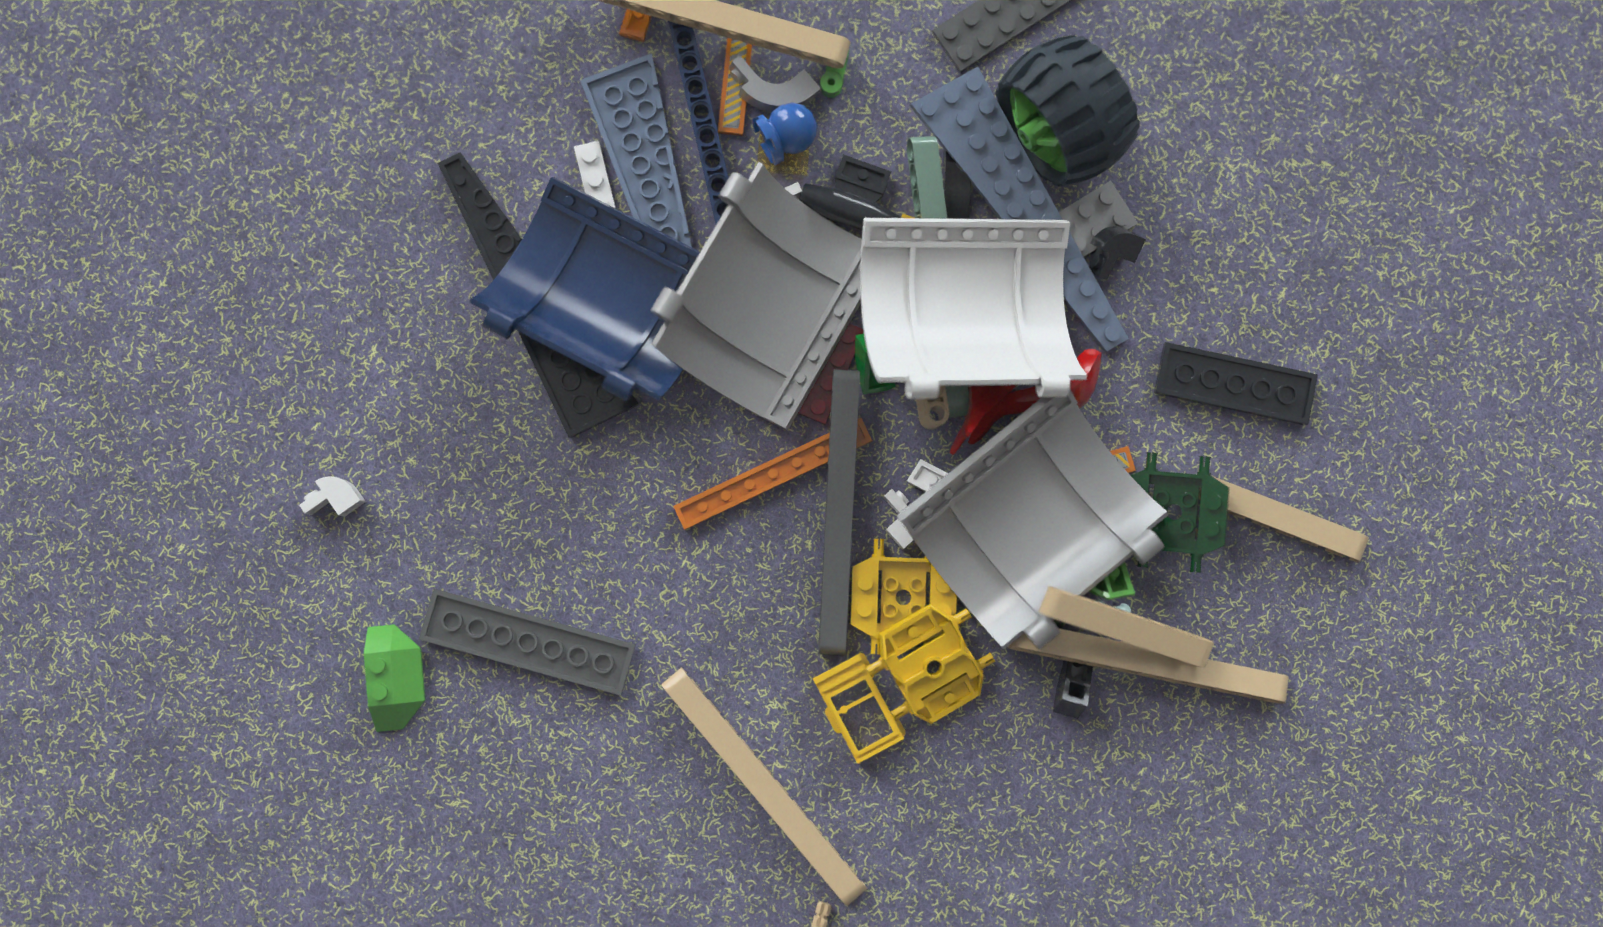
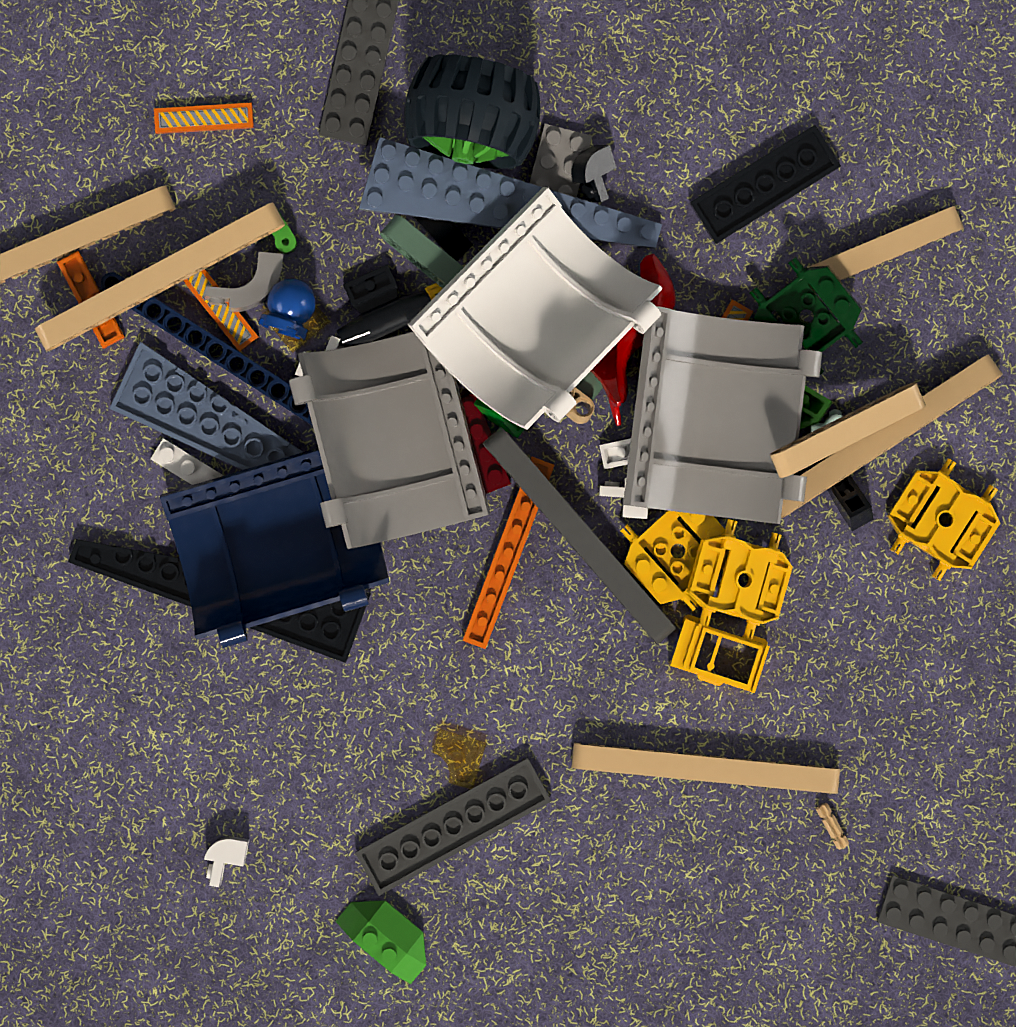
camera: 40 degrees left, 5 degrees up
(586, 595) = (461, 756): none -> clear yellow tile
(1112, 778) = (929, 533): none -> yellow piece

